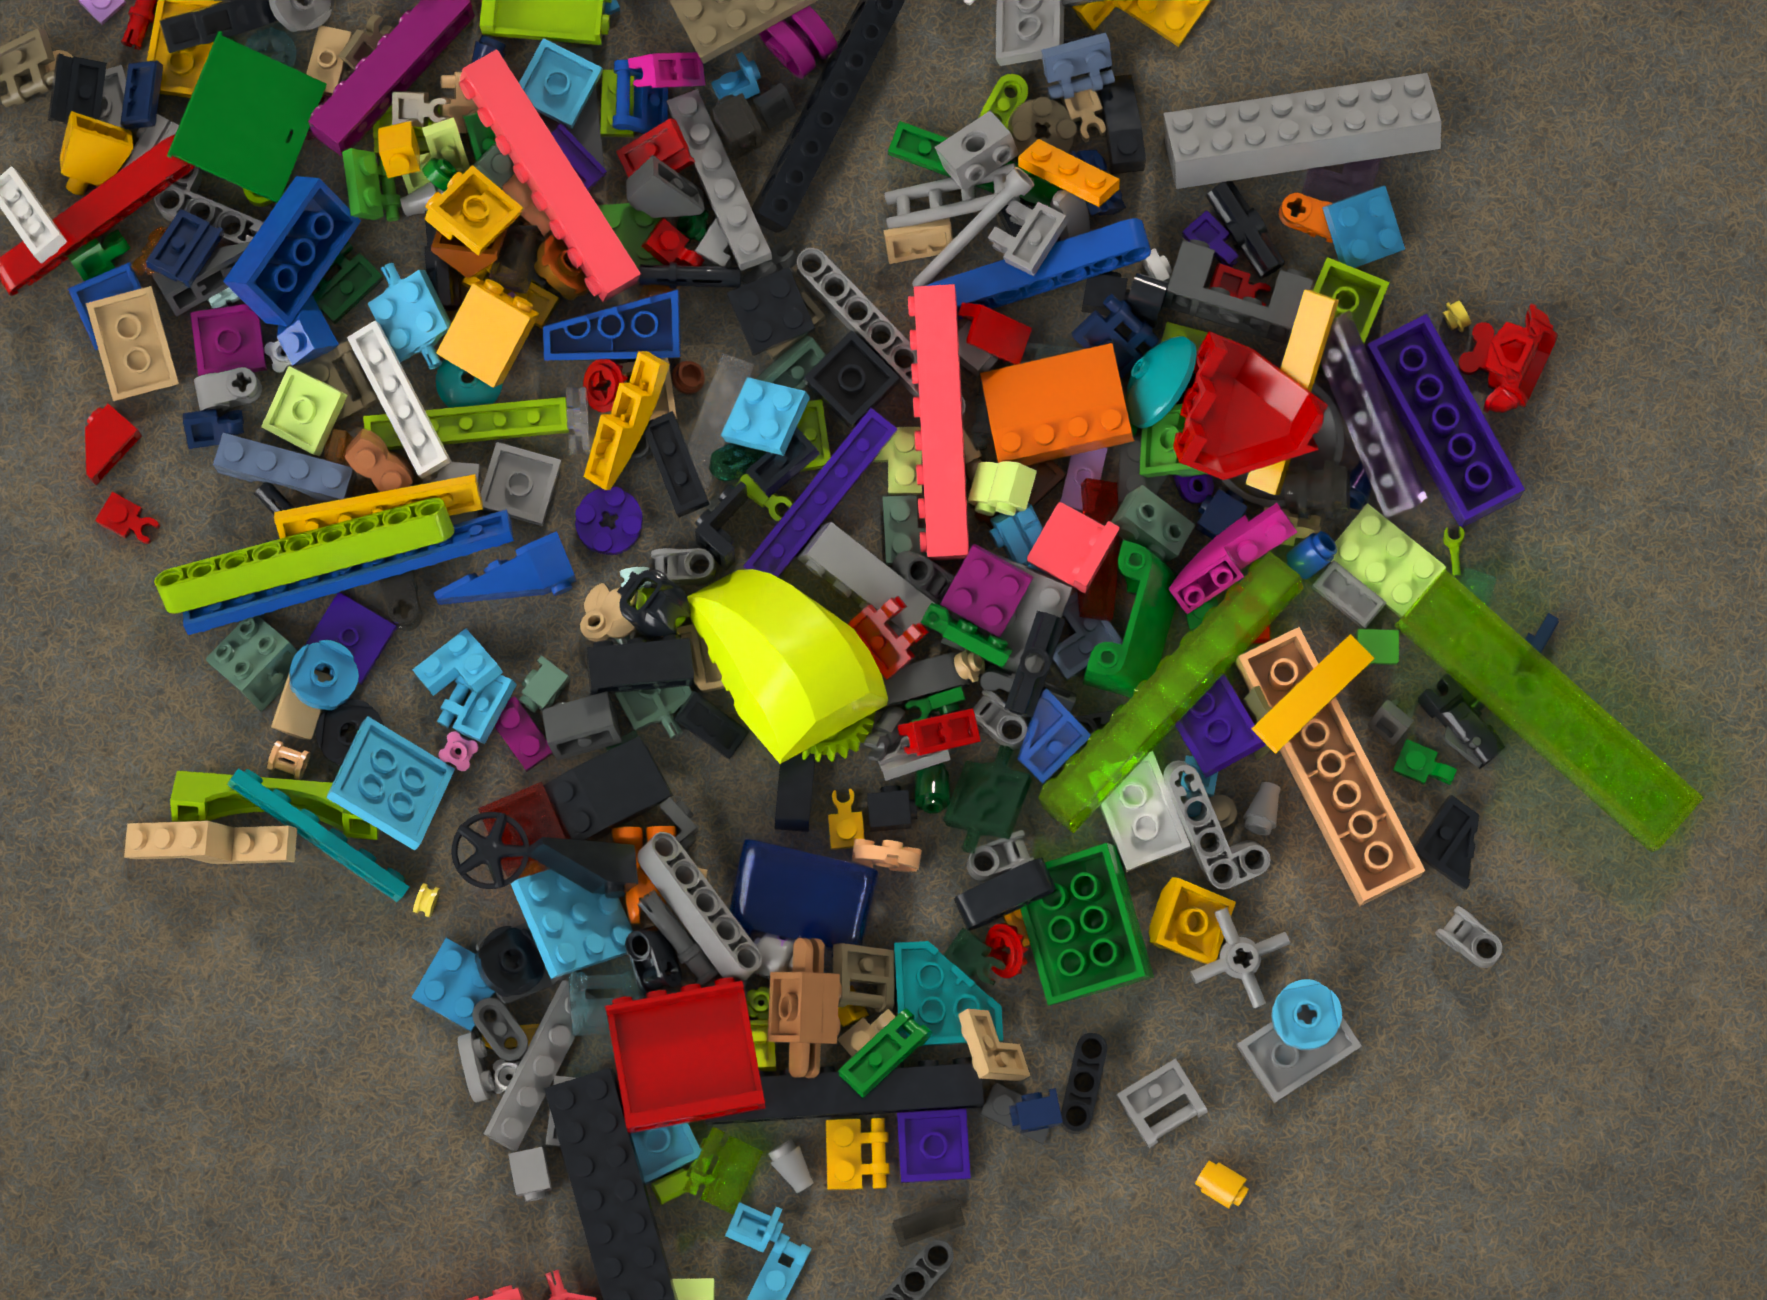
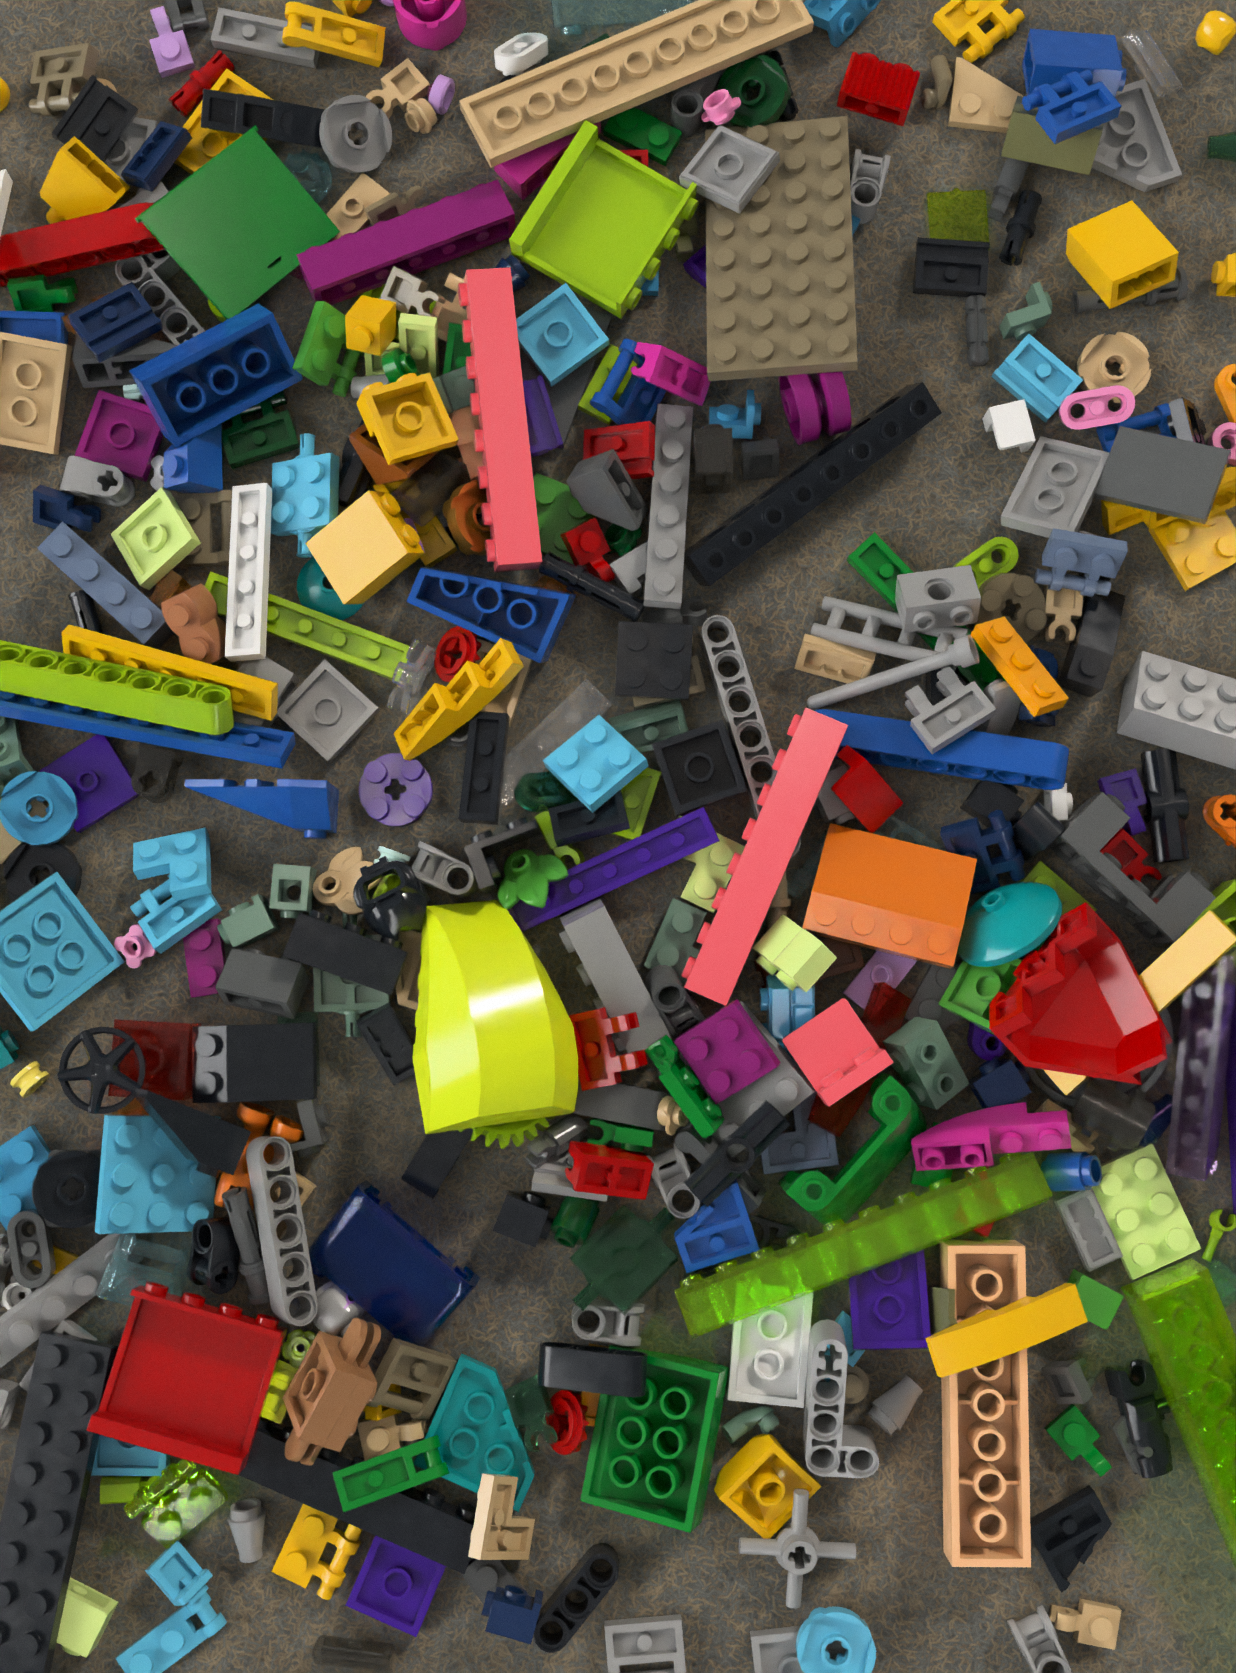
camera: 30 degrees right, 5 degrees up
(566, 629) = (283, 879): none -> sand green brick
(688, 377) = (542, 686): copper plate -> none
(759, 538) = (531, 879): none -> bright green plate
(845, 825) = (473, 1210): yellow plate -> none
(889, 855) = (490, 1265): light nougat plate -> none
(1160, 871) = (748, 1420): none -> sand green arm
(1504, 901) = (1092, 1622): none -> tan plate

